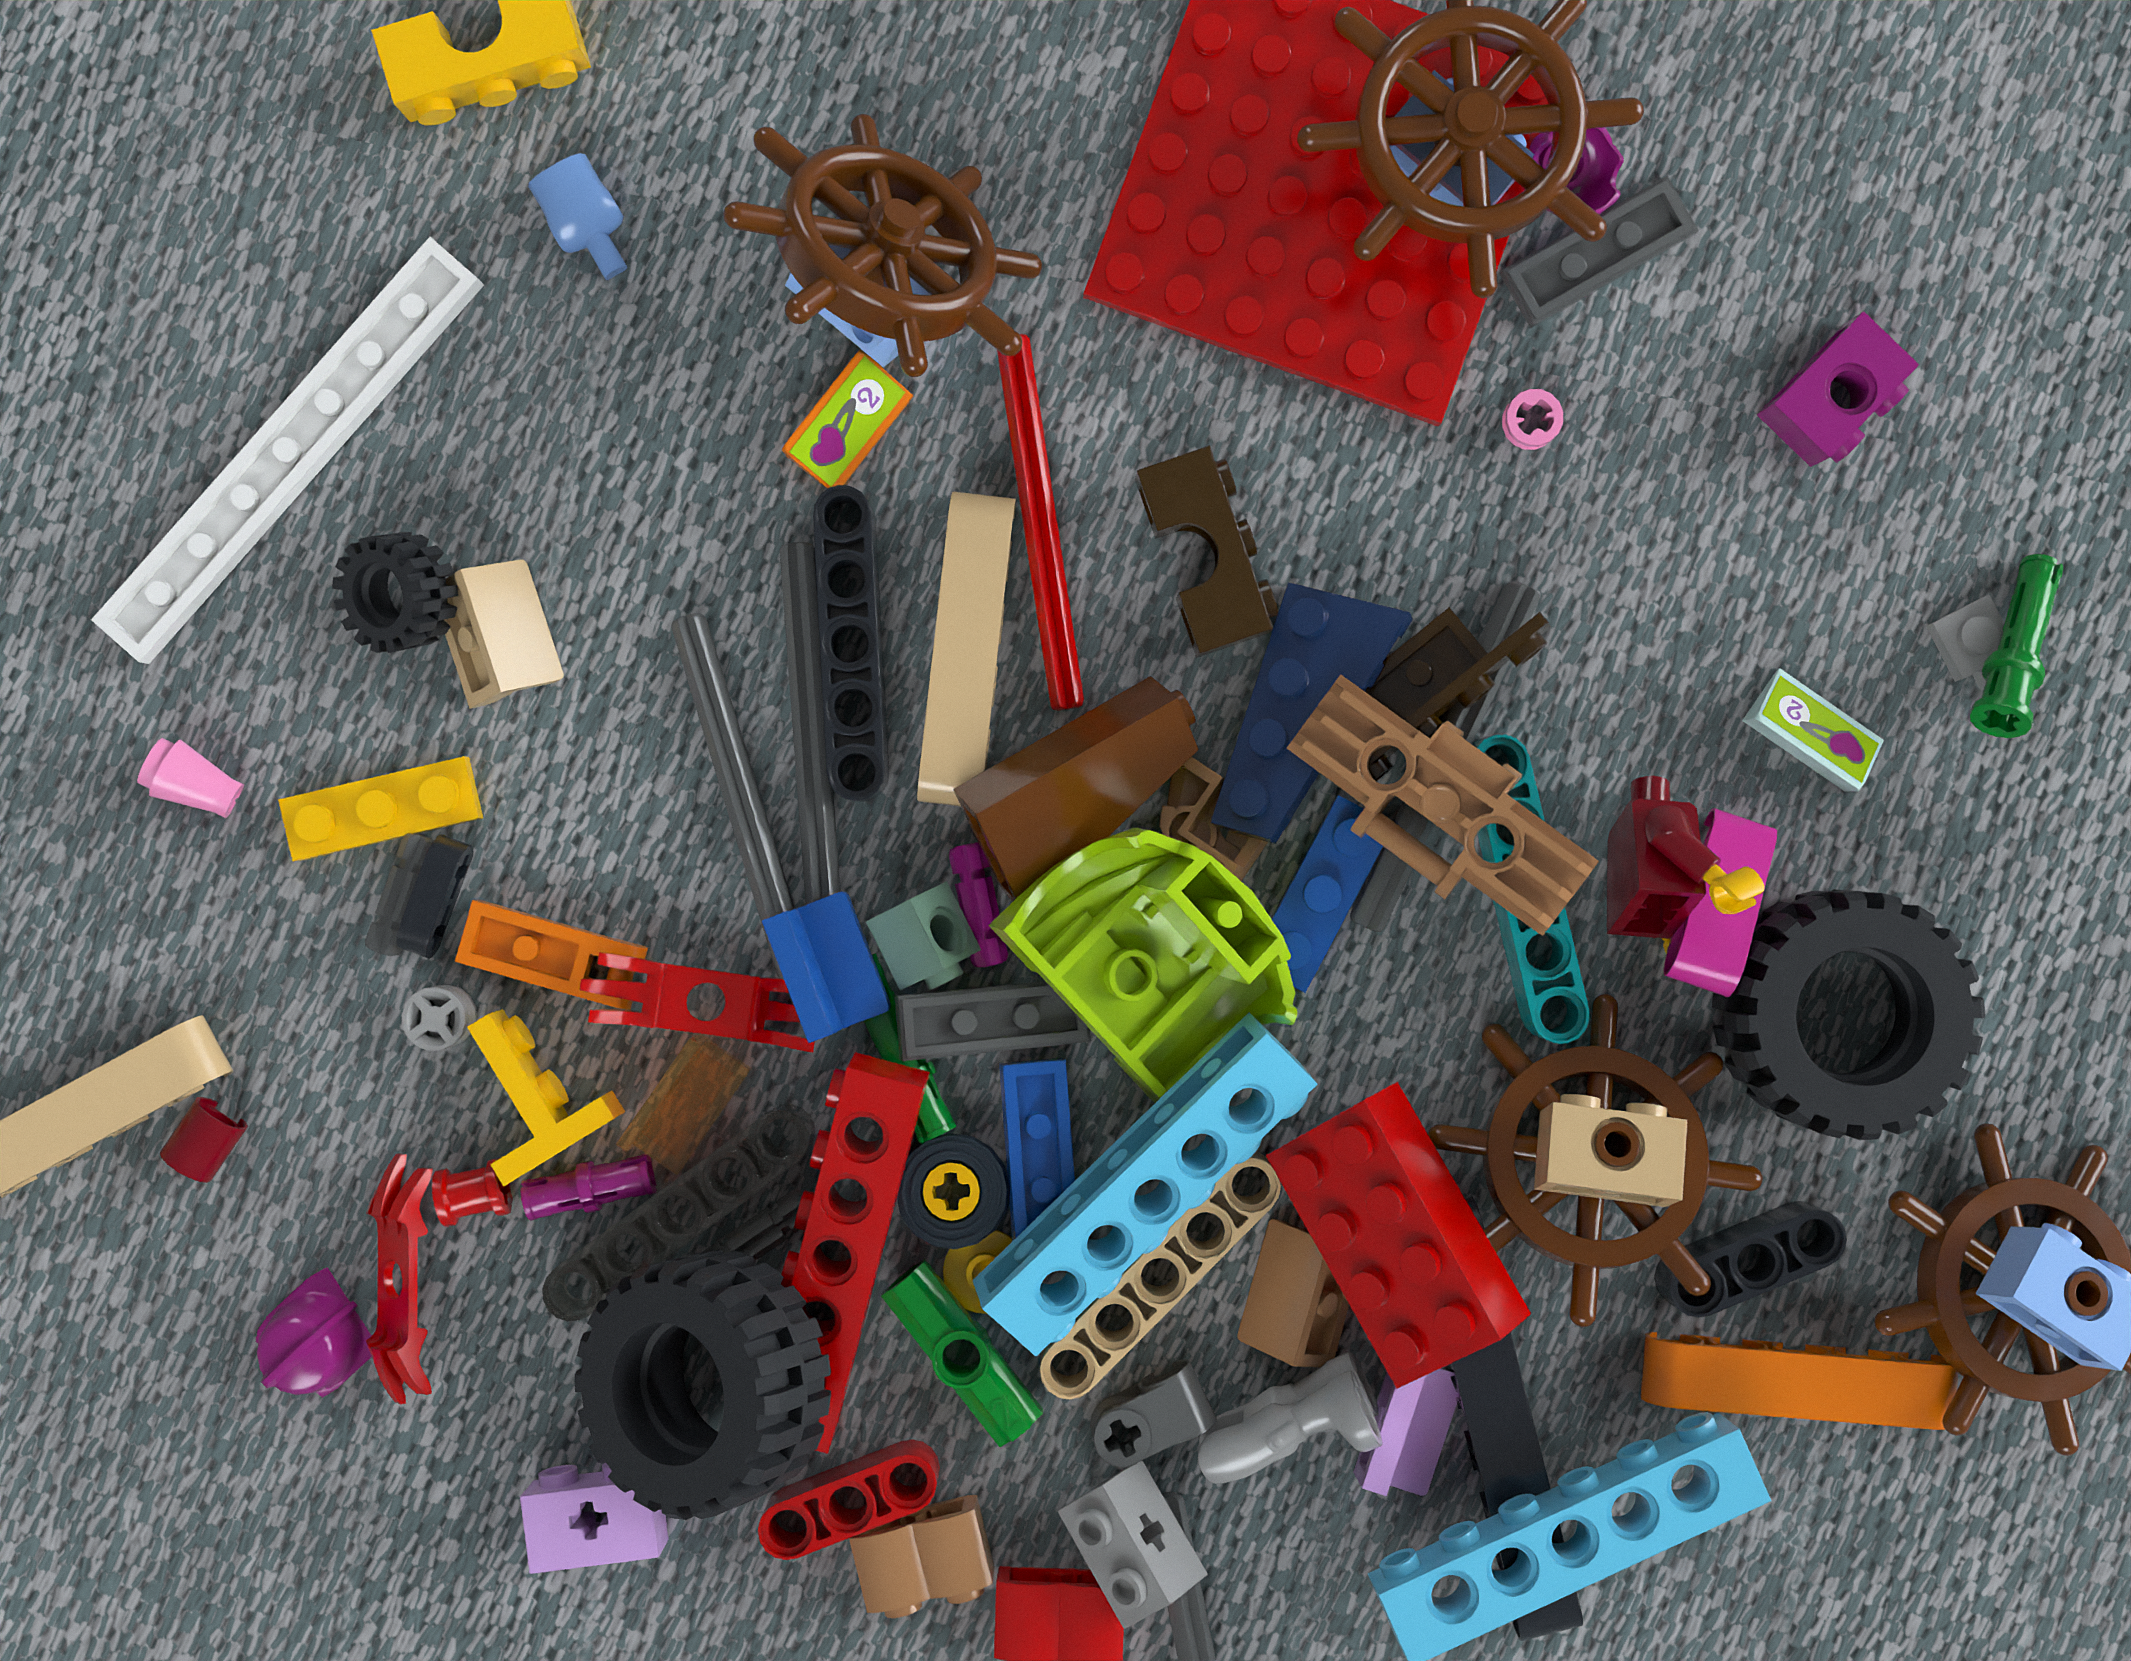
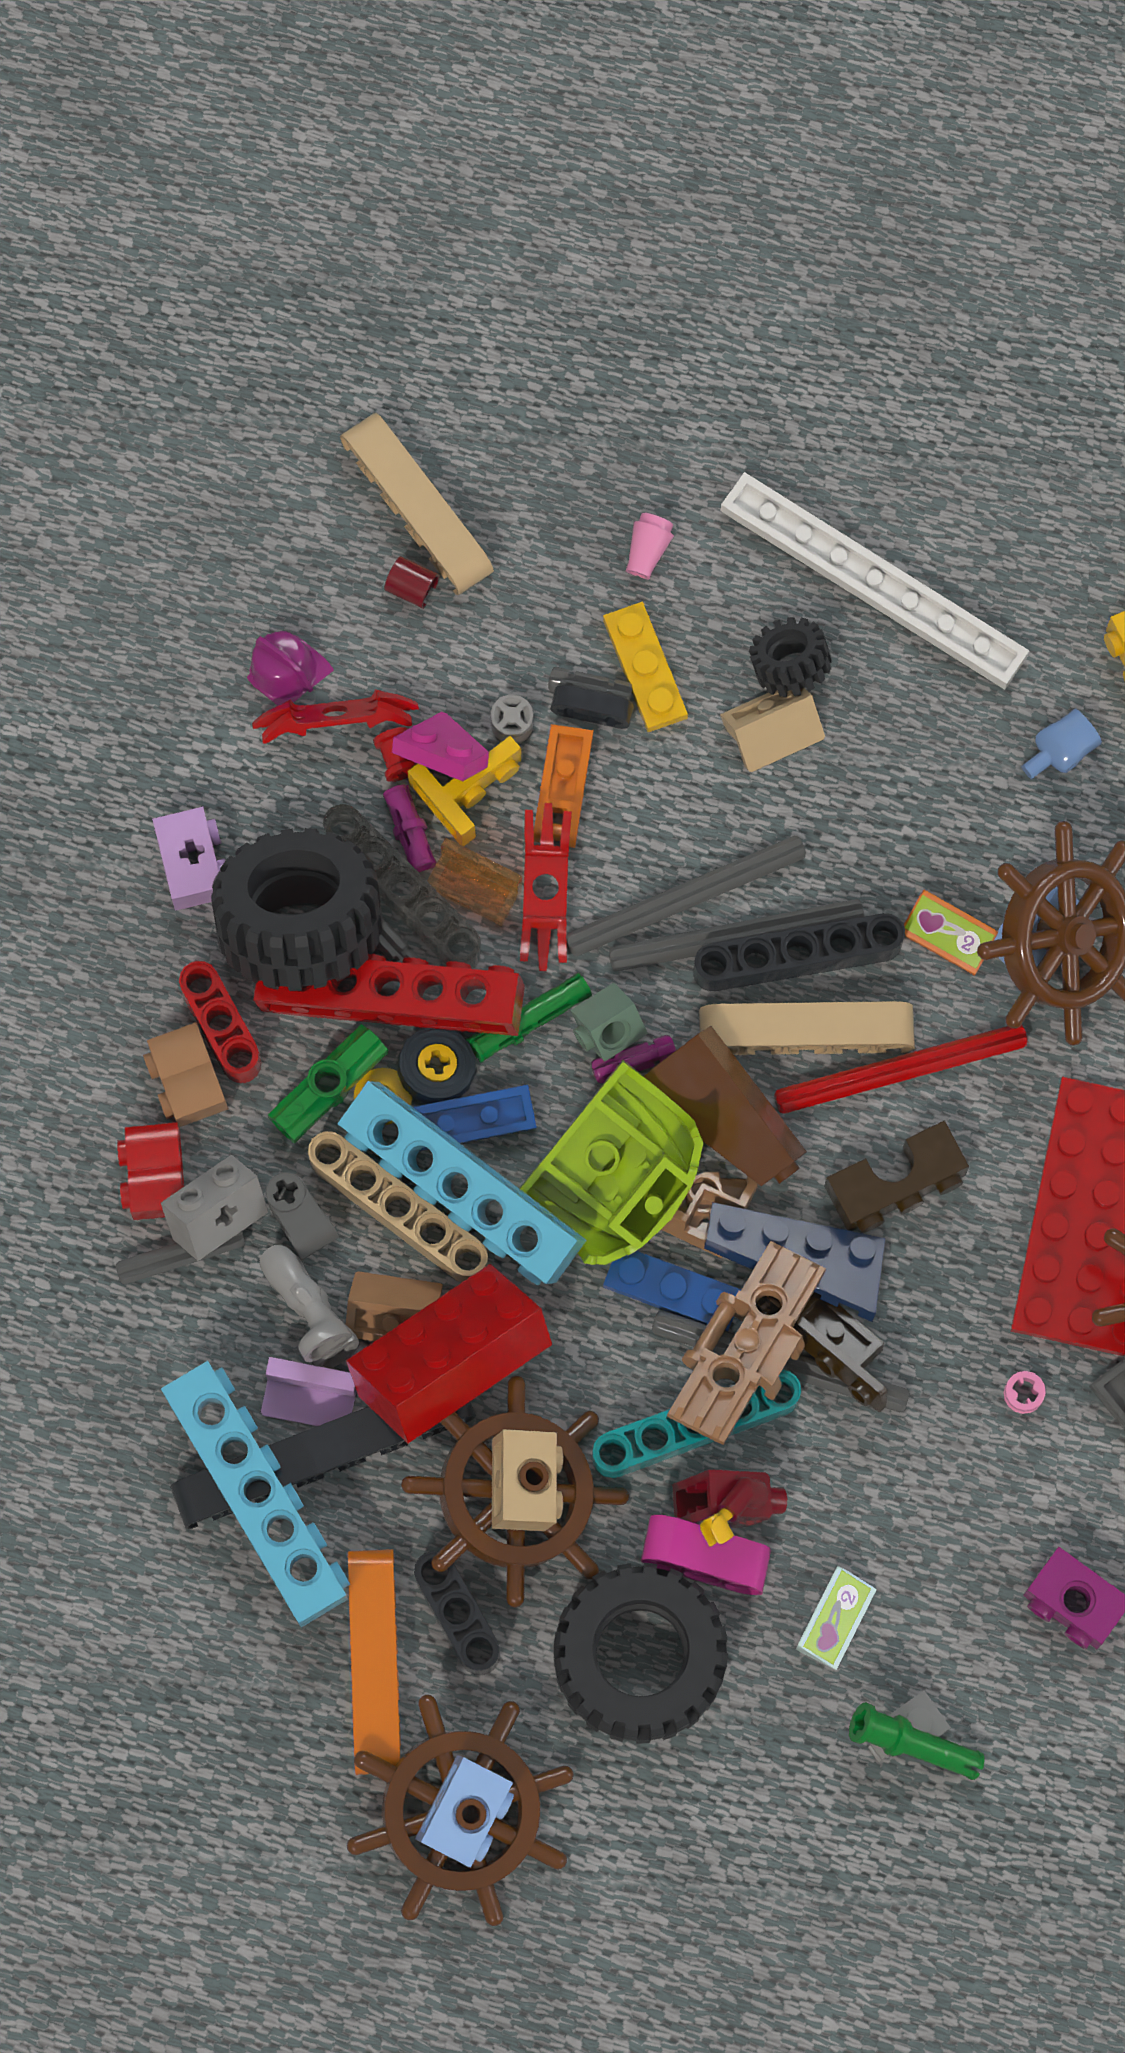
camera: 80 degrees right, 15 degrees down
(474, 1132) = (442, 747): none -> dark pink wing
(827, 965) = (580, 959): blue panel -> none
(984, 1020) = (555, 1070): dark grey tile -> none

